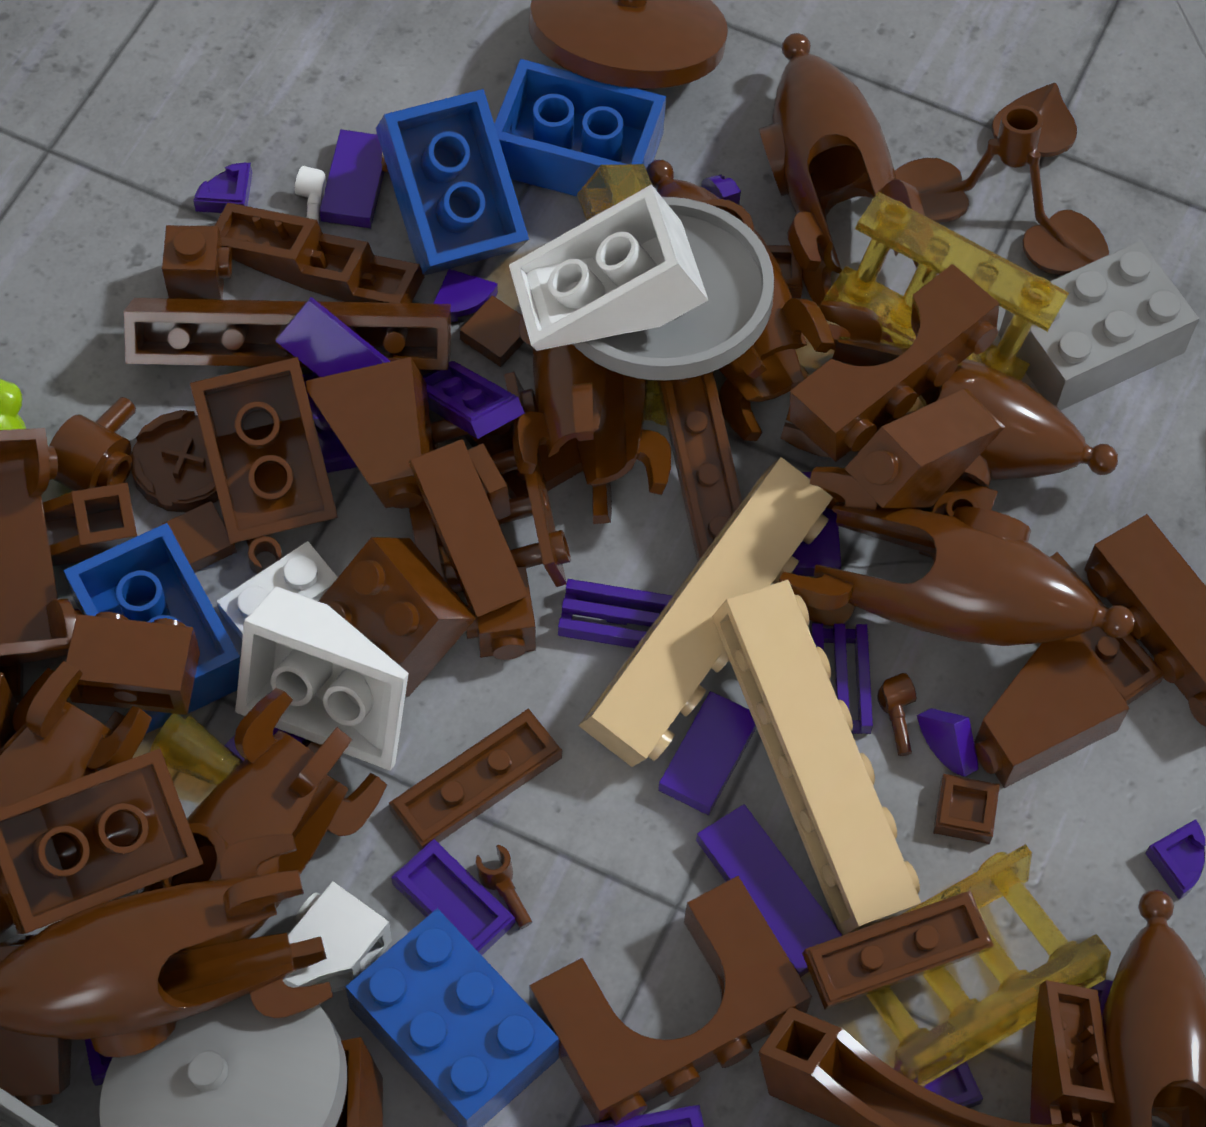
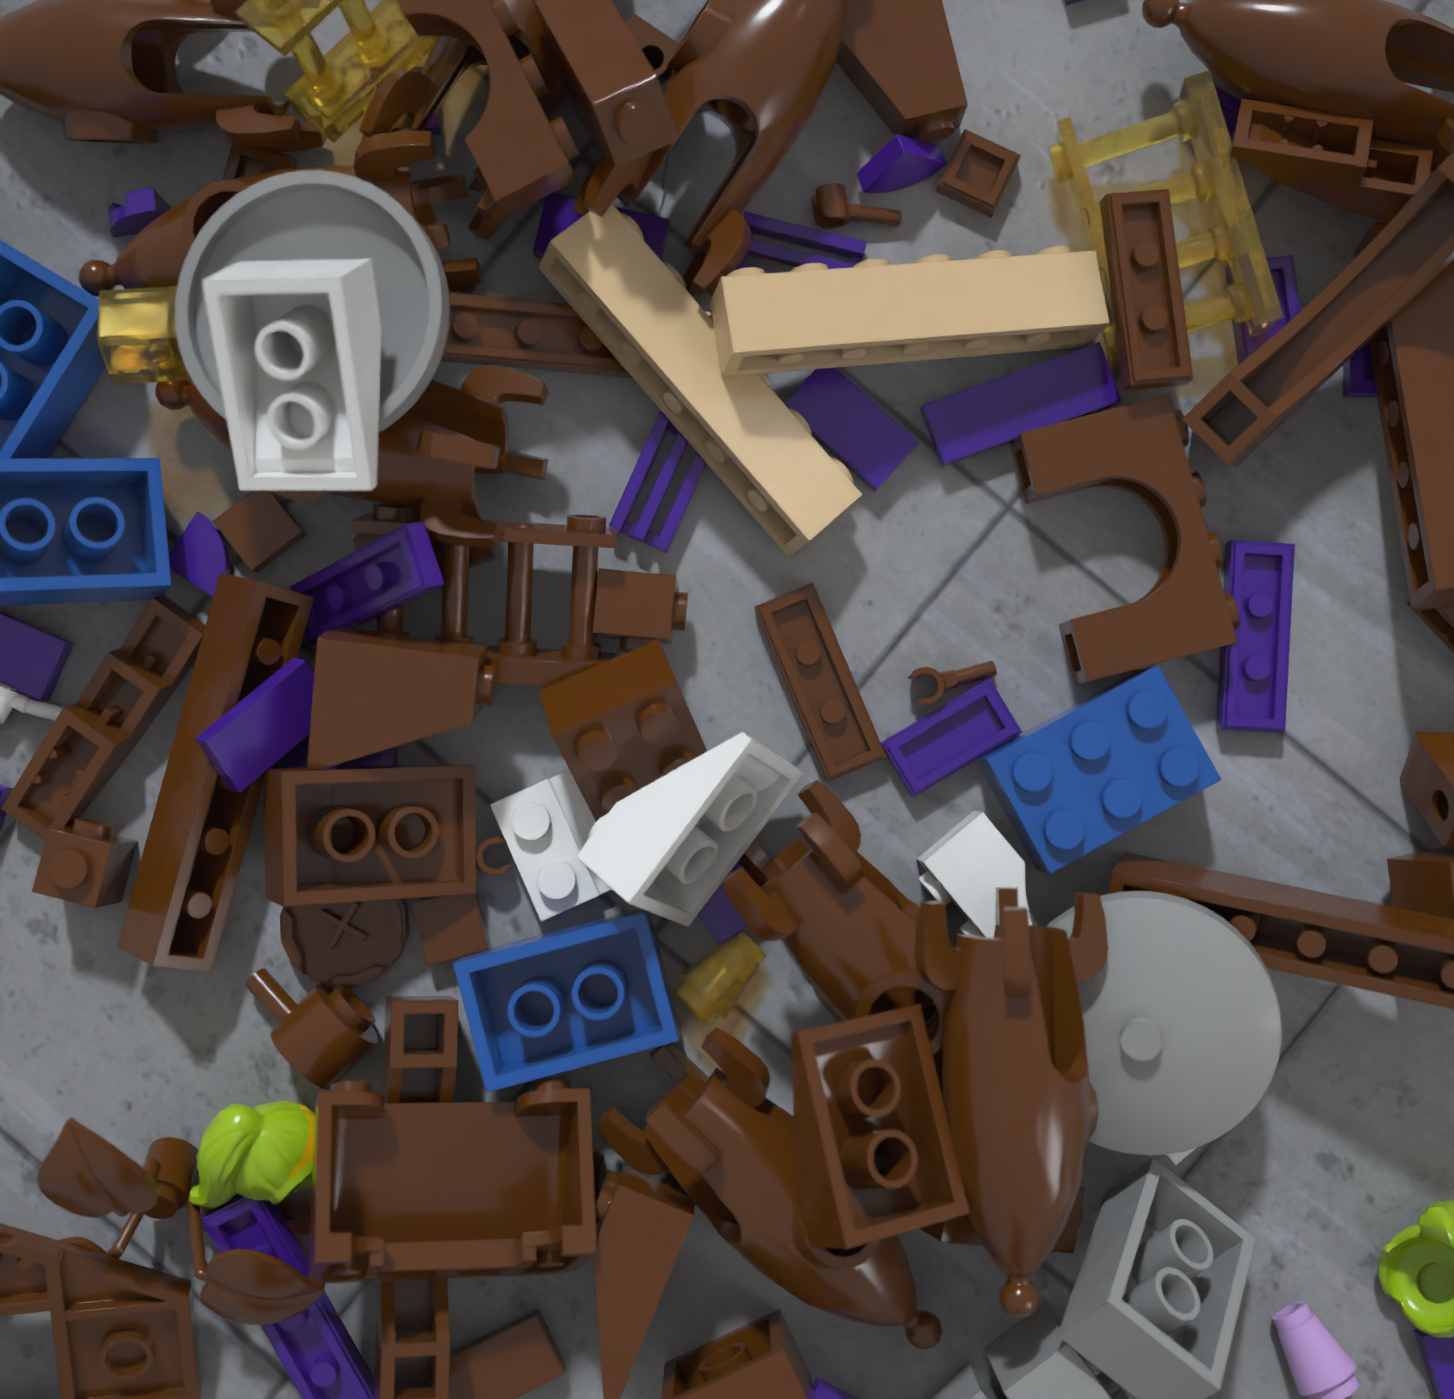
camera: 75 degrees left, 25 degrees up
(133, 662) = (638, 1038): reddish brown brick -> none
(468, 528) = (554, 622): reddish brown tile -> none
(491, 480) = (496, 586): reddish brown tile -> none

